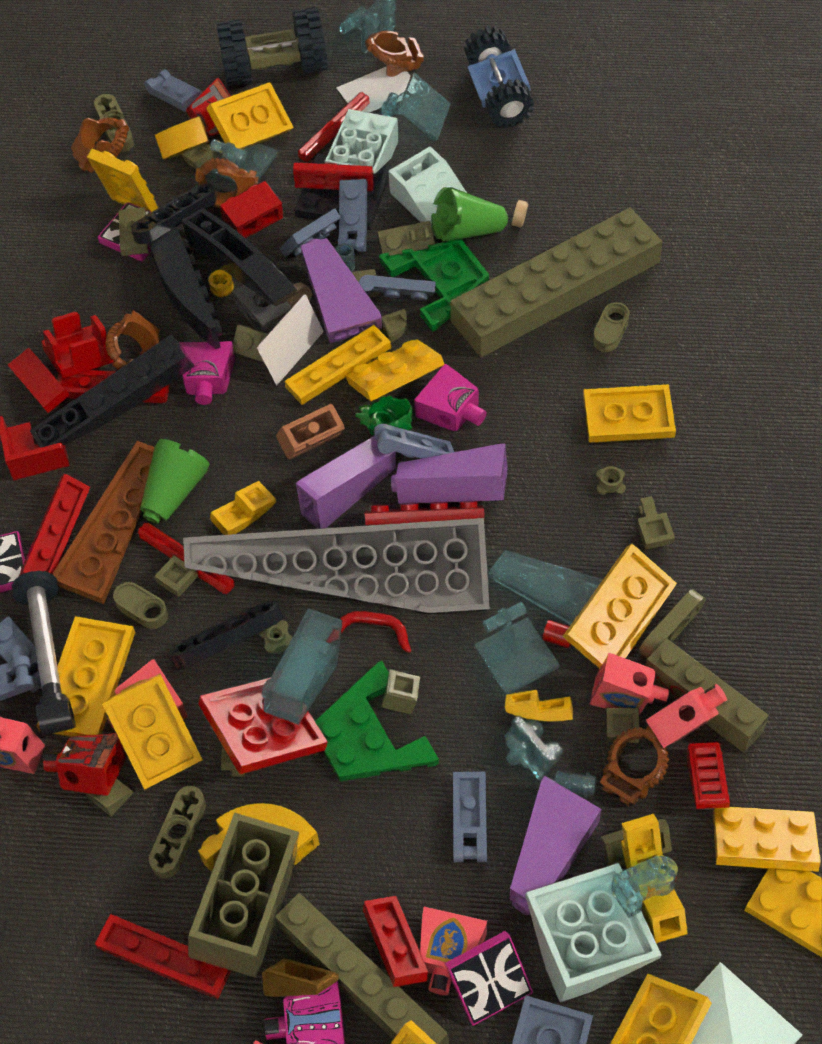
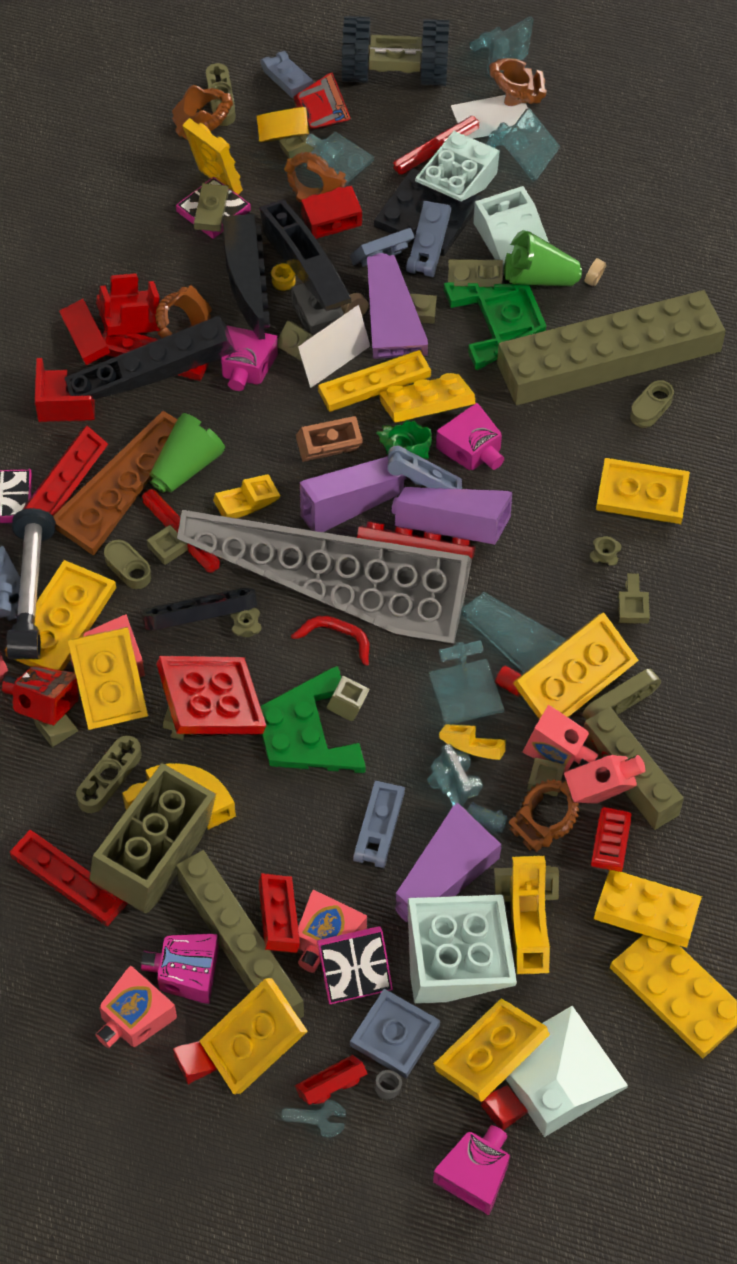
camera: 10 degrees right, 0 degrees up
(170, 215) = (253, 197): black beam -> none
(250, 117) = (354, 118): yellow plate -> none
(296, 979) = (180, 922): pearl gold slope -> none
(304, 667) = (262, 653): clear light blue wedge -> none
(329, 175) = (415, 193): red tile -> none
(346, 253) = (411, 276): clear light blue hinge -> none
(393, 287) = (449, 318): sand blue plate -> none
(394, 324) = (440, 354): olive tile -> none
(498, 77) = (614, 130): plate -> none
(644, 881) = (519, 914): clear light blue leg -> none

